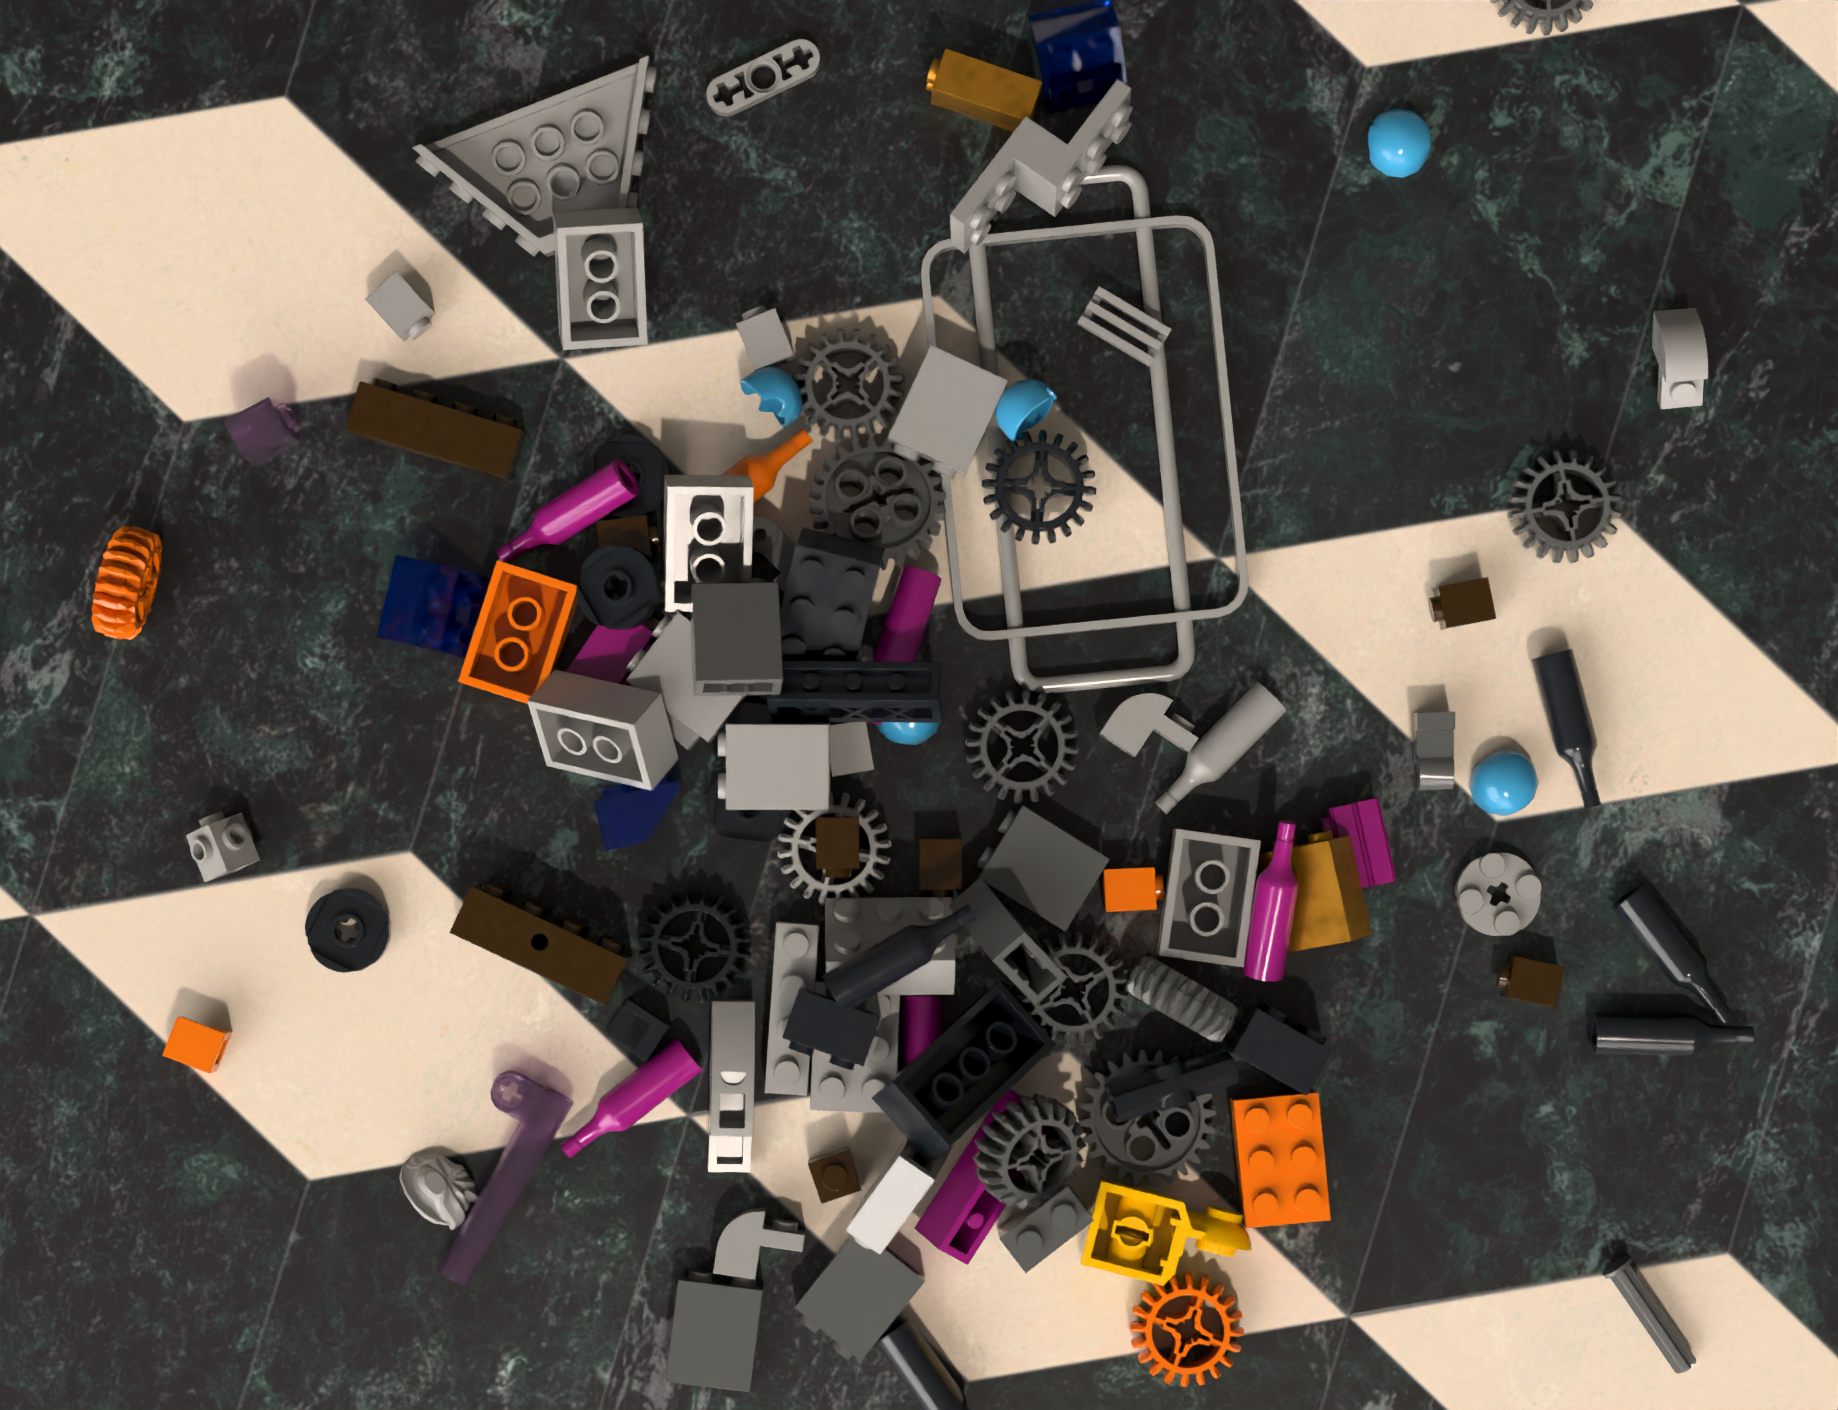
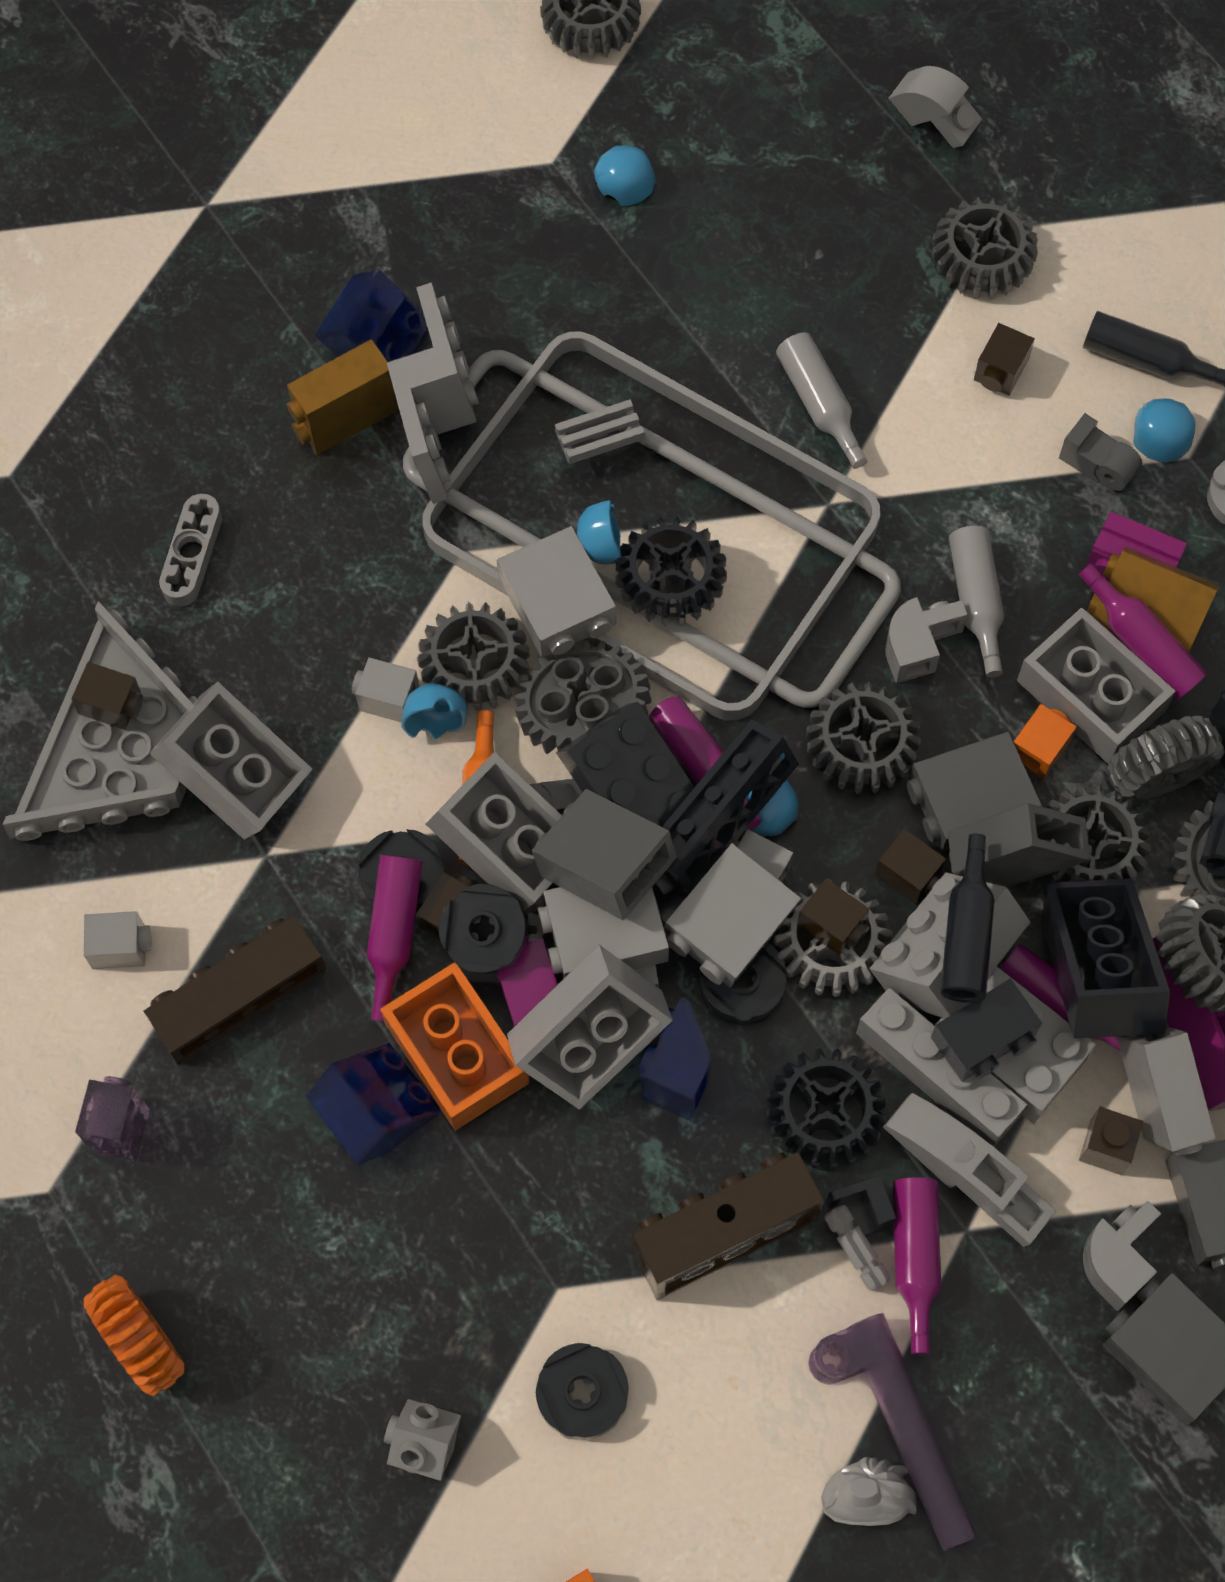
camera: 45 degrees left, 20 degrees down
(578, 133) = (107, 696): none -> dark brown brick
(608, 1047) = (857, 1247): none -> light grey axle
(1310, 476) = (820, 392): none -> light grey piece

